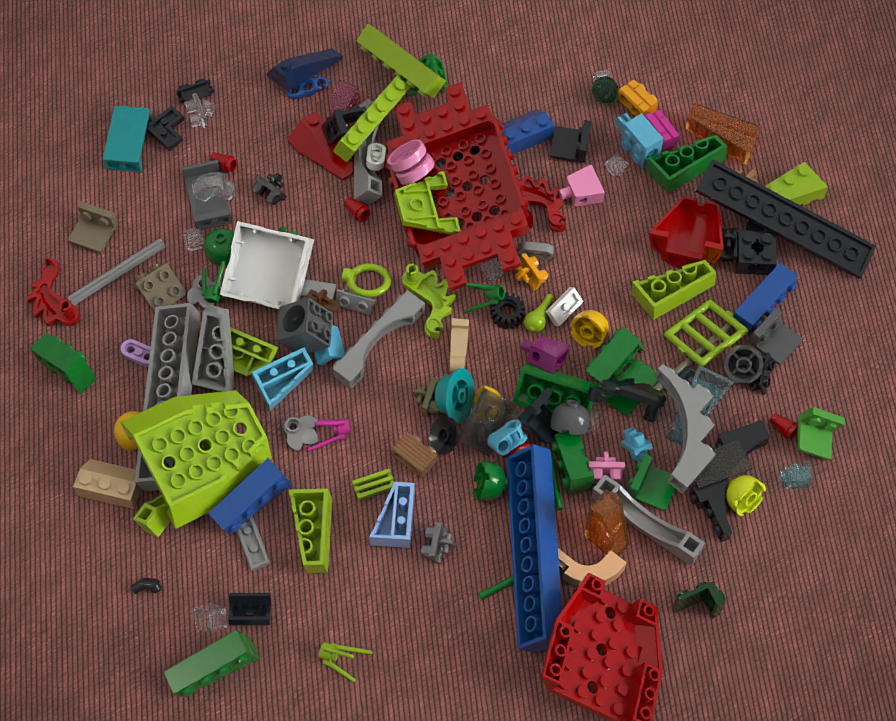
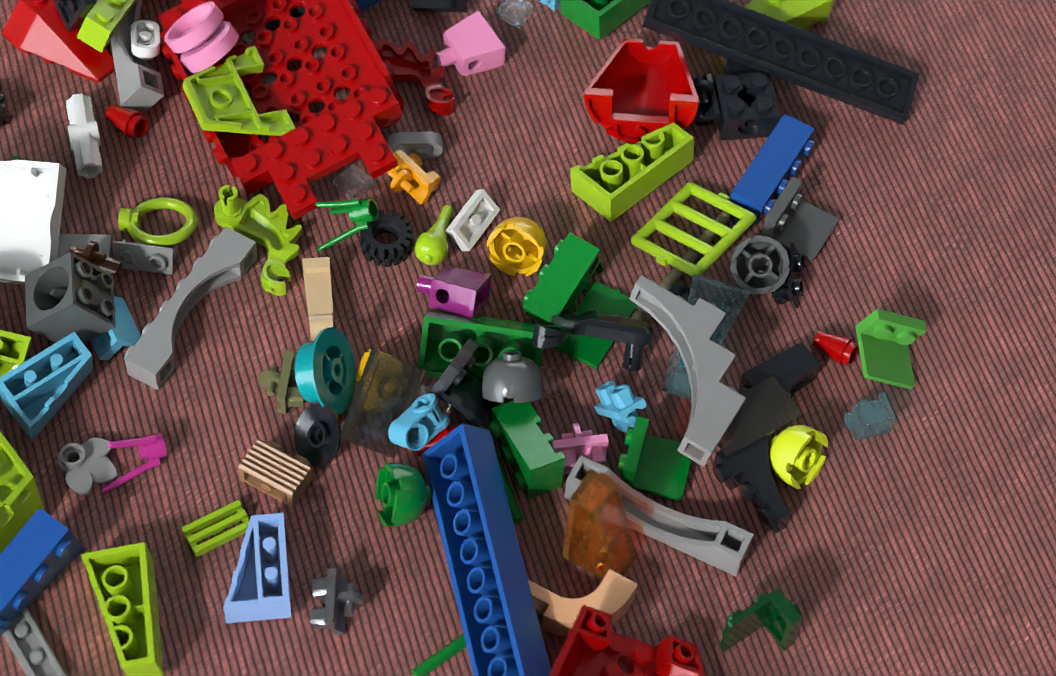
camera: 15 degrees left, 5 degrees down
(328, 216) = (84, 136): none -> white piece

